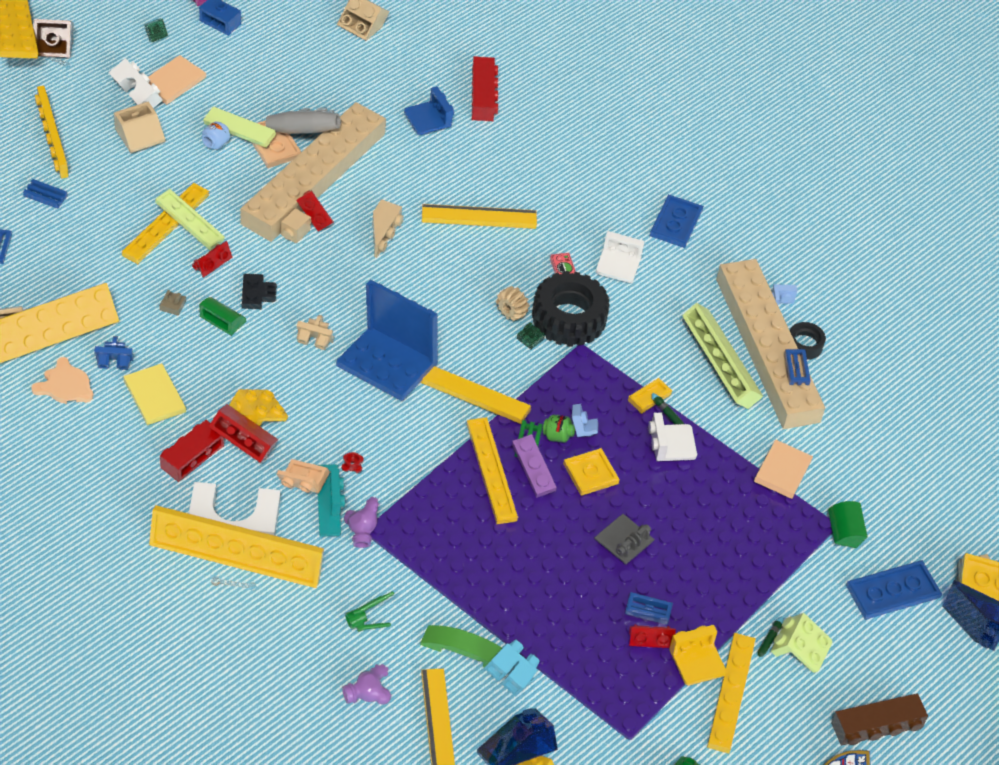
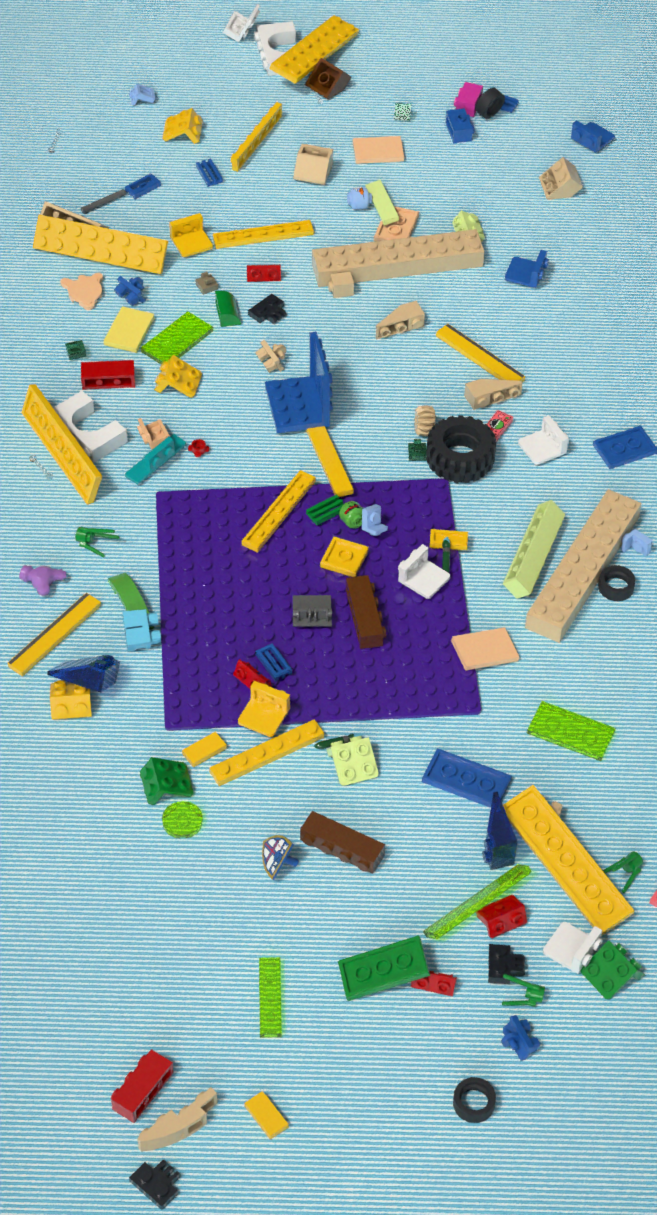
camera: 50 degrees right, 0 degrees up
(106, 267) = (189, 235): none -> yellow bracket
(128, 76) = (346, 133): white arch -> none
(131, 447) = (75, 350): none -> clear green plate
(189, 219) = (277, 239): yellowish green tile -> none
(208, 374) = (177, 338): none -> clear neon green tile
(243, 433) = (145, 382): red brick -> none
(304, 121) = (424, 221): light grey plate -> none
(314, 209) = (362, 275): red hinge -> none
(333, 101) = (467, 221): none -> yellowish green bracket
(363, 523) = (155, 485): medium lavender animal -> none
(484, 88) = (589, 276): red brick -> none
(525, 243) = (491, 391): none -> tan slope
(534, 466) = (307, 525): medium lavender plate -> none
(667, 507) = (364, 612): none -> reddish brown brick
(683, 730) = (204, 749): none -> yellow tile
(798, 379) = (573, 593): blue tile -> none
(848, 523) = (483, 713): green brick -> none
(915, 489) = (571, 730): none -> clear neon green tile

